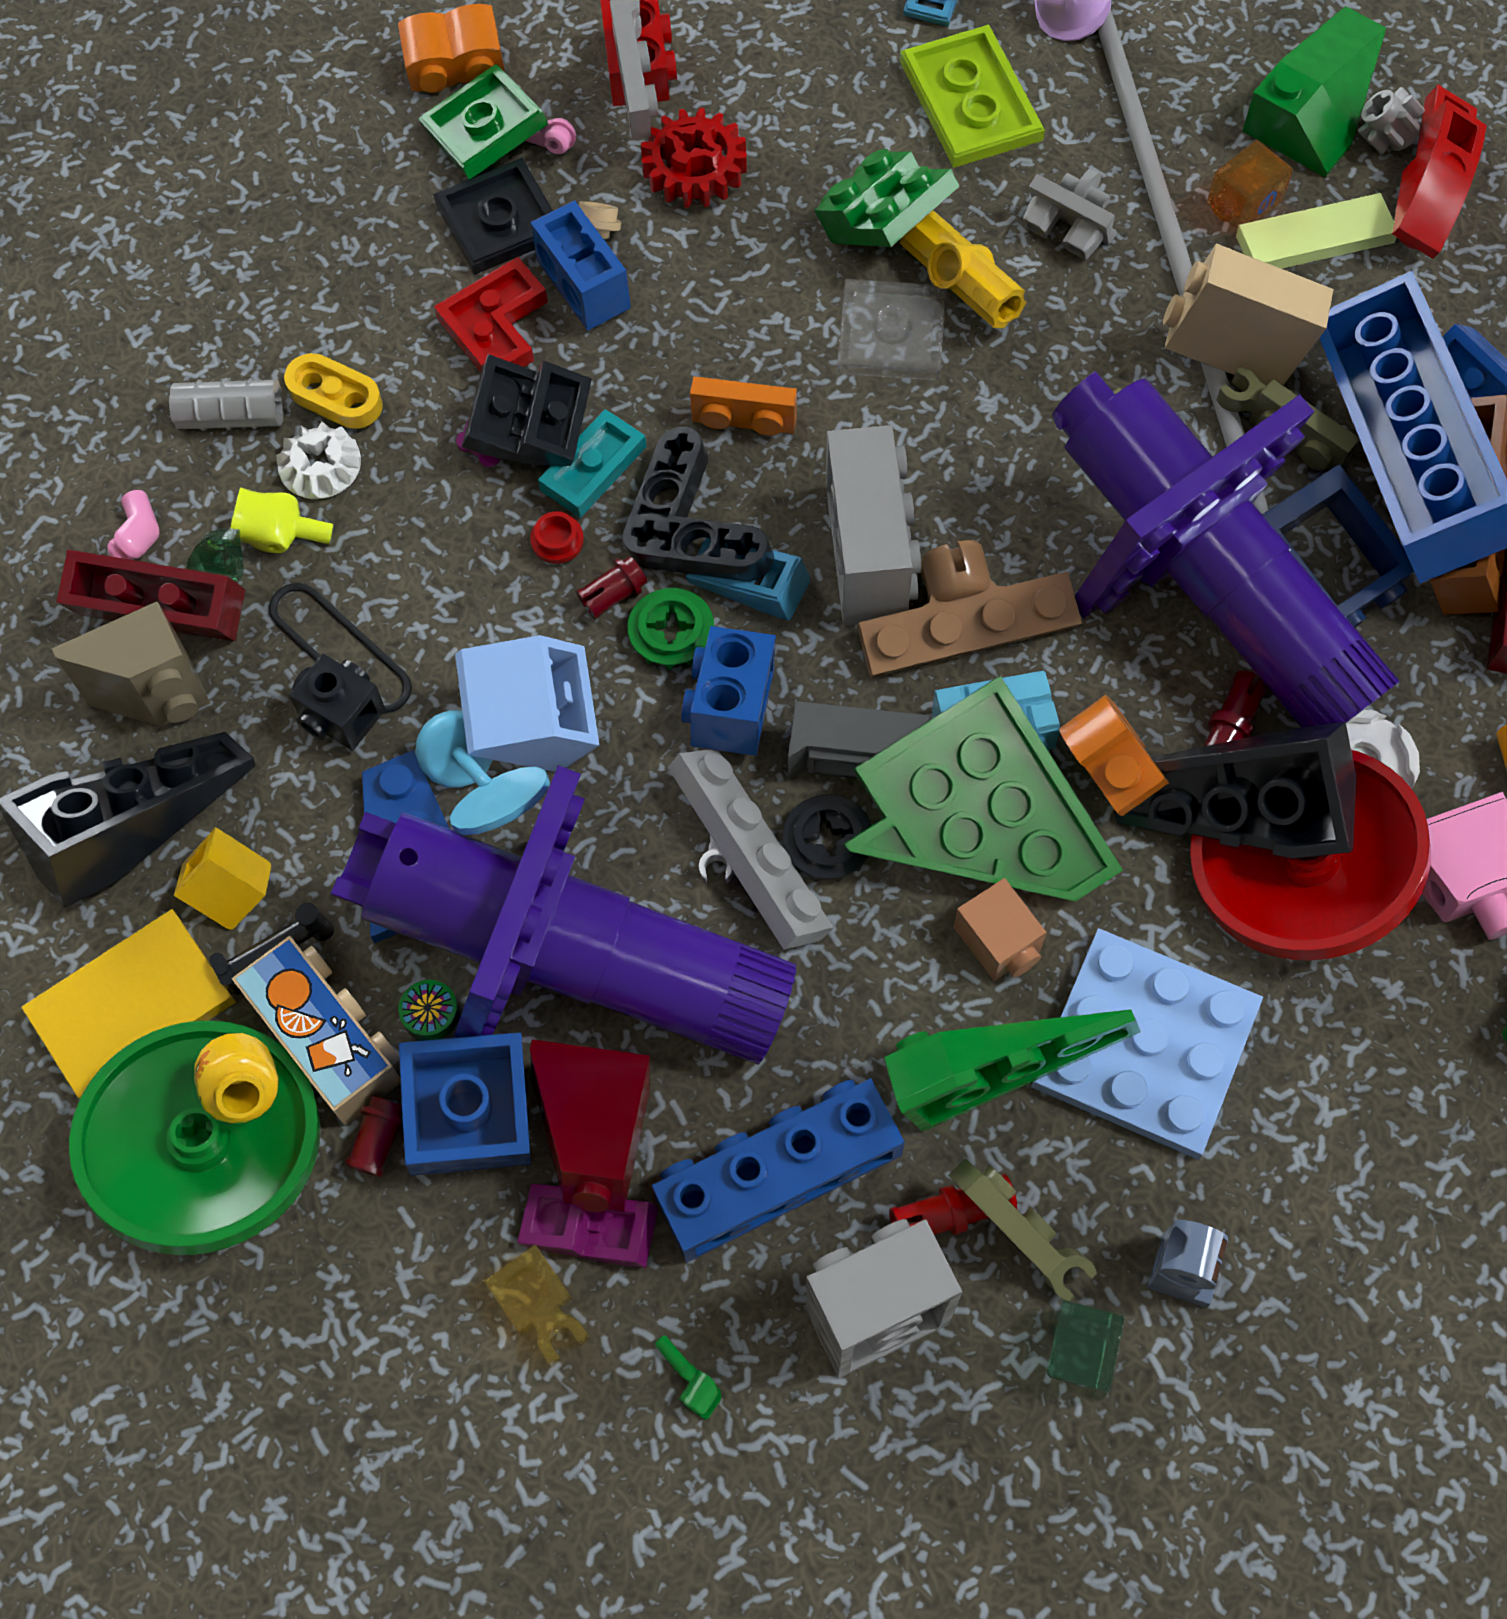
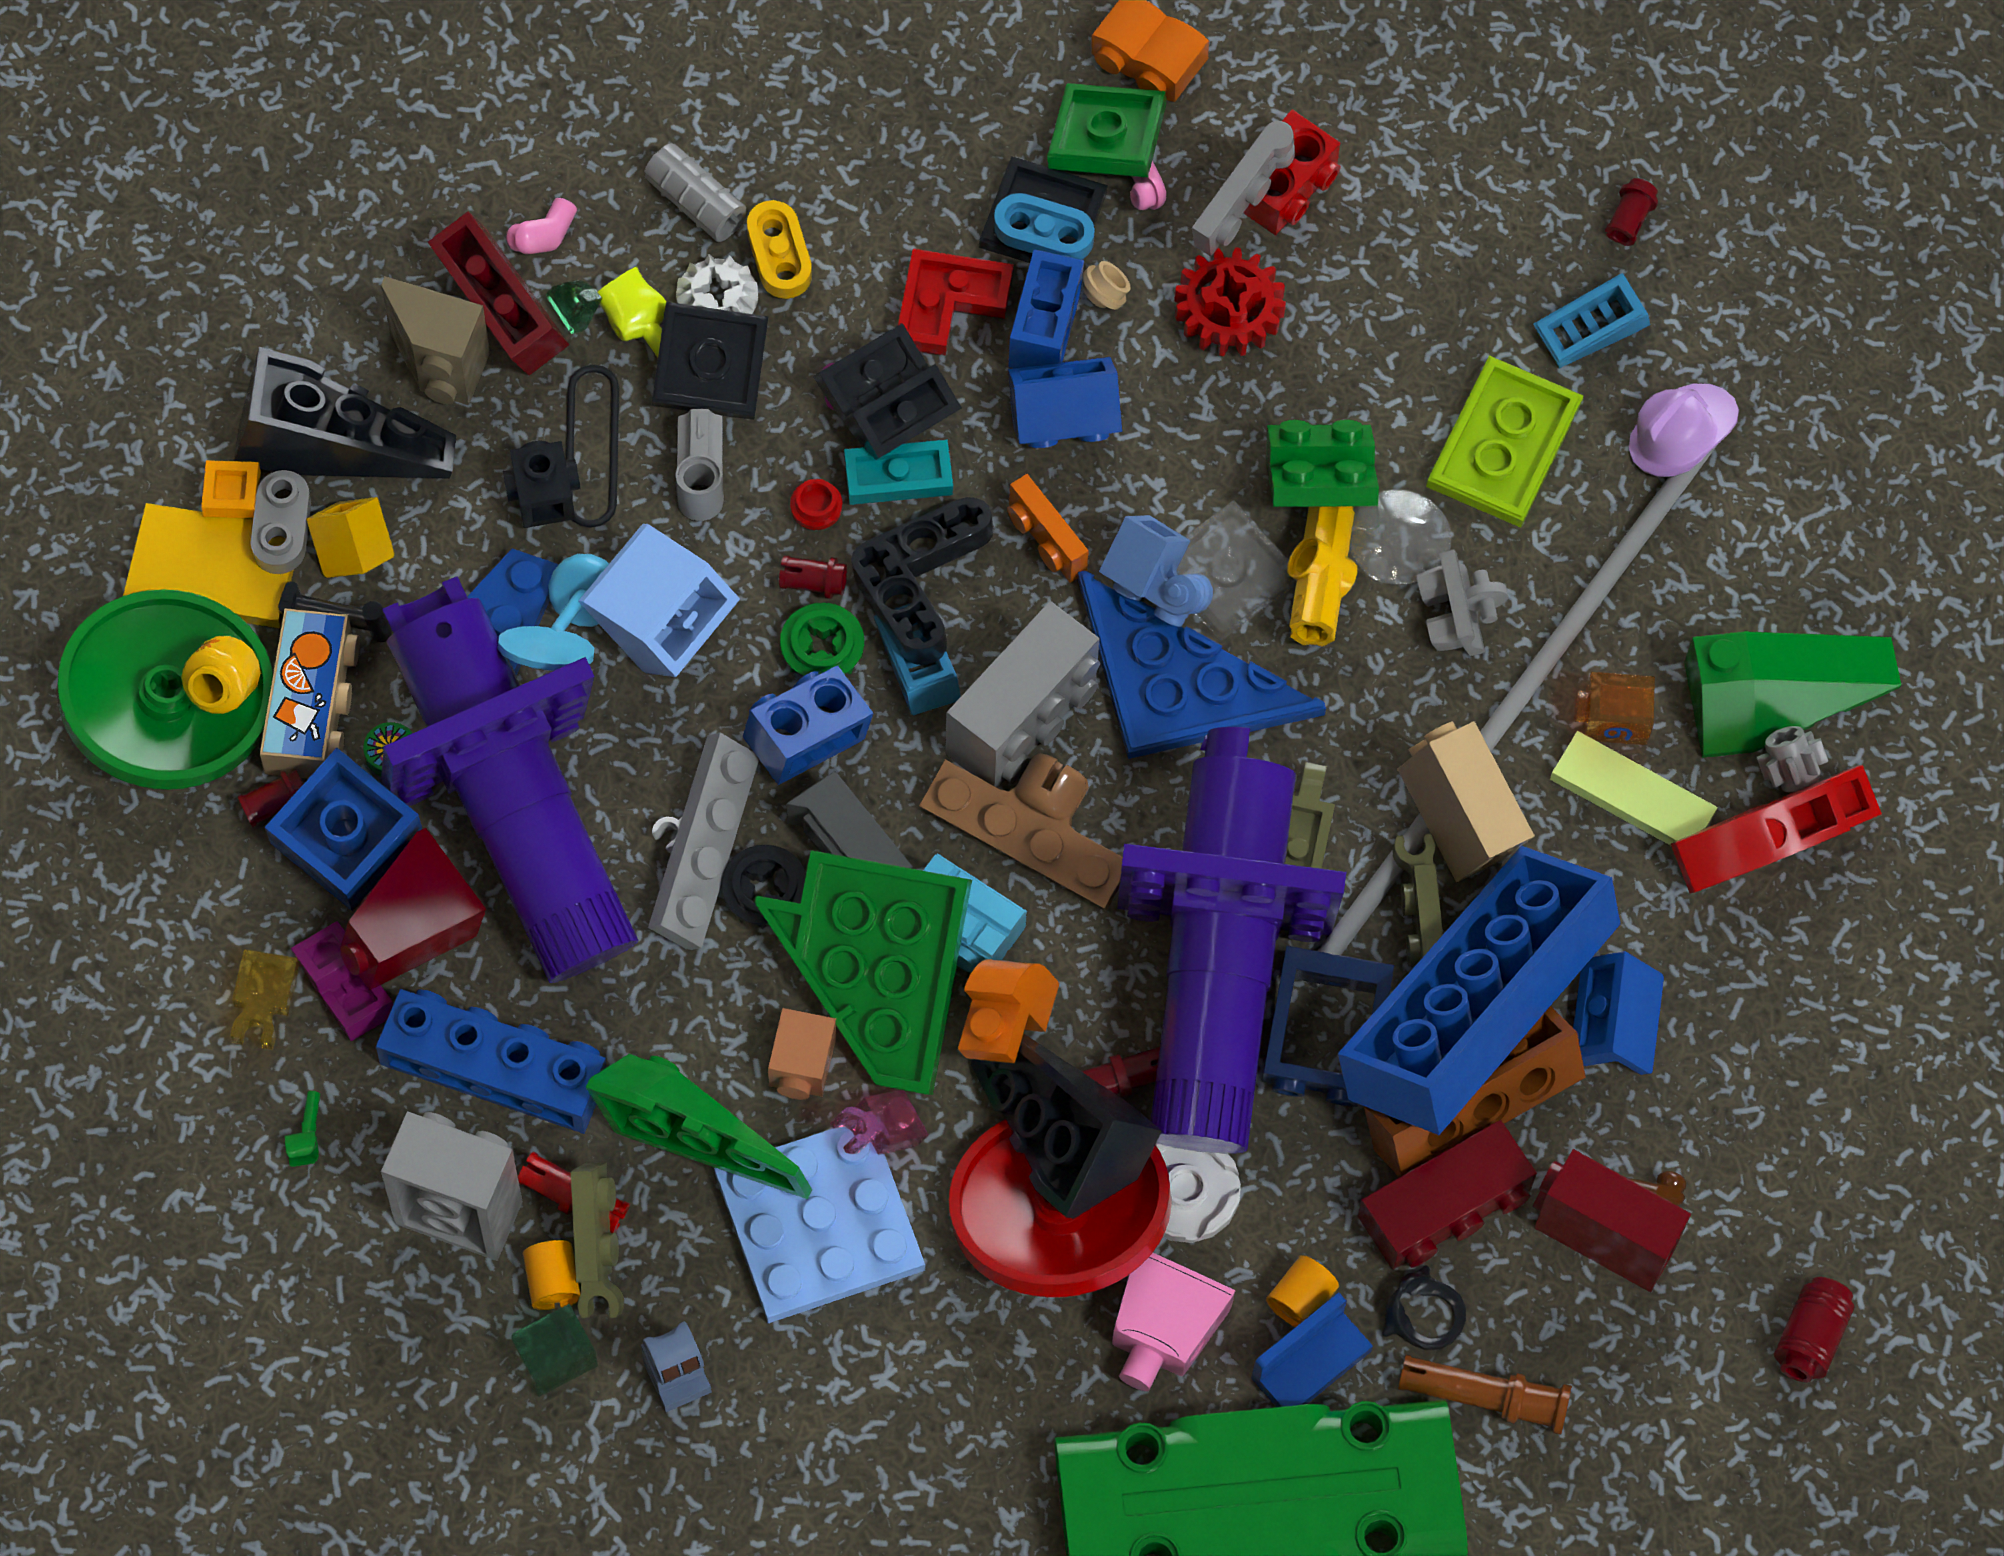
camera: 40 degrees right, 0 degrees up
(85, 930) = (230, 489): none -> light orange tile
(152, 914) = (281, 518): none -> light grey plate
(367, 507) = (710, 360): none -> black plate
(440, 584) = (699, 464): none -> light grey piece
(511, 212) = (1046, 226): none -> dark azure plate
(661, 310) = (1065, 402): none -> blue brick
(843, 368) = (1145, 565): none -> medium blue brick
(951, 430) = (1176, 682): none -> blue tile
(985, 208) = (1399, 537): none -> clear dish
(1011, 1291) = (551, 1274): none -> light orange beam
(1117, 923) = (885, 1121): none -> clear pink plate

